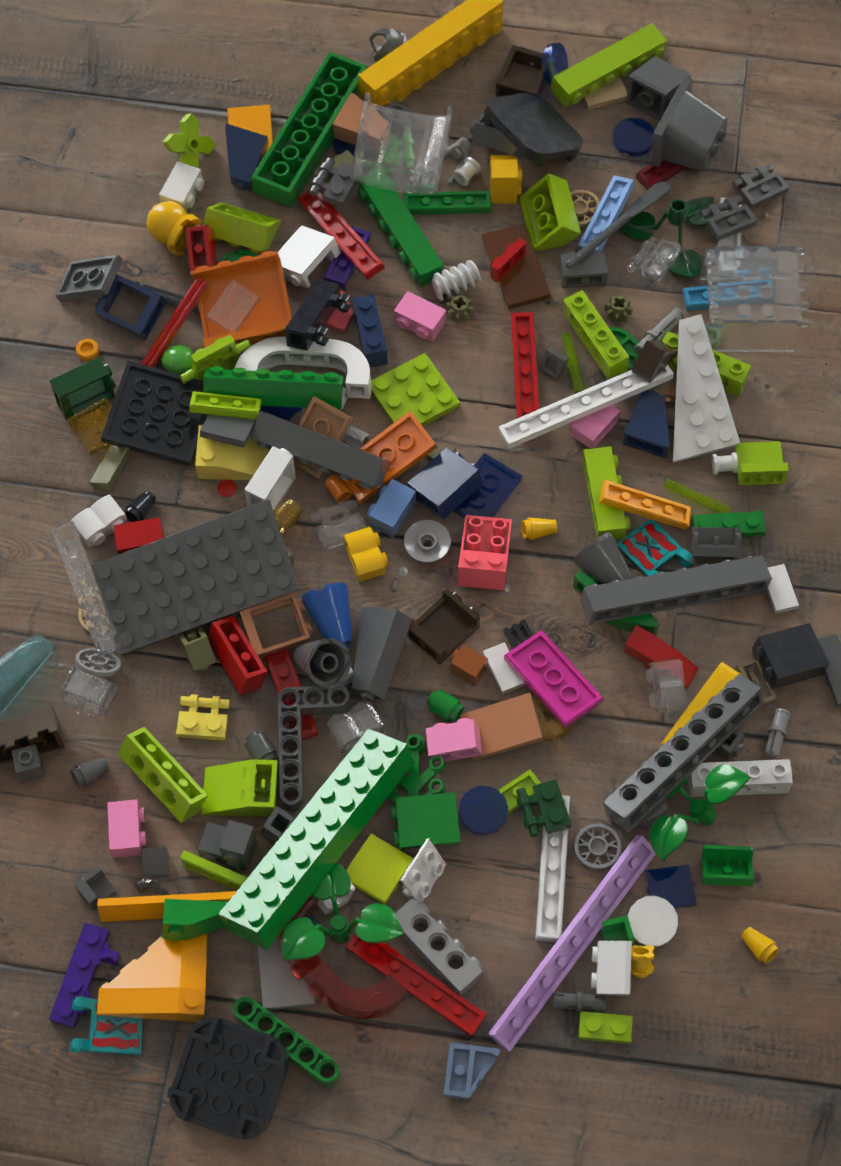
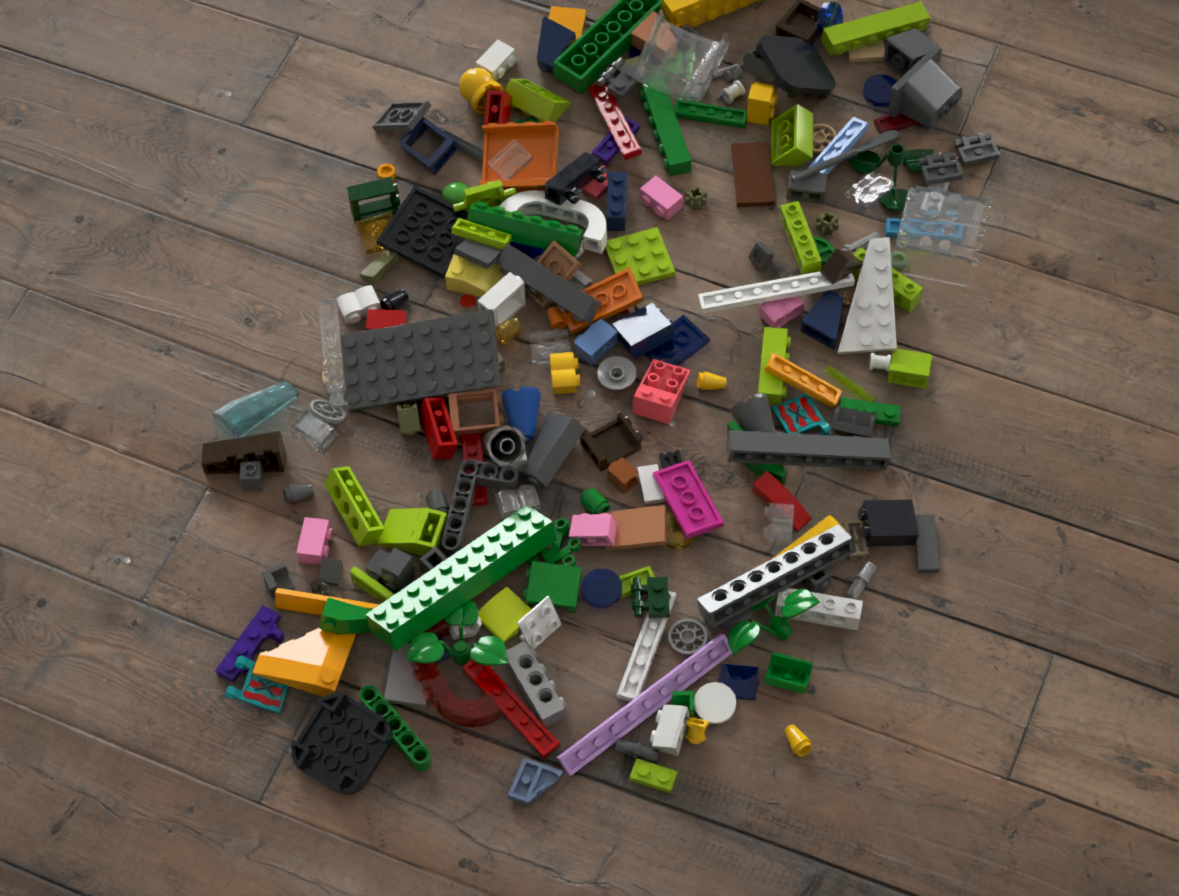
camera: 15 degrees right, 5 degrees down
(175, 322) = (461, 163): red axle -> none
(188, 143) = (510, 27): lime plant -> none
(203, 725) = (398, 477): light yellow plate -> none
(304, 253) = (579, 130): white panel -> none
(456, 278) = (698, 174): white piece -> none
(502, 265) = (745, 167): red plate -> none
(524, 363) = (737, 249): red plate -> none
(572, 362) = (777, 257): clear neon green bar -> none
(781, 590) = (898, 470): white tile -> none

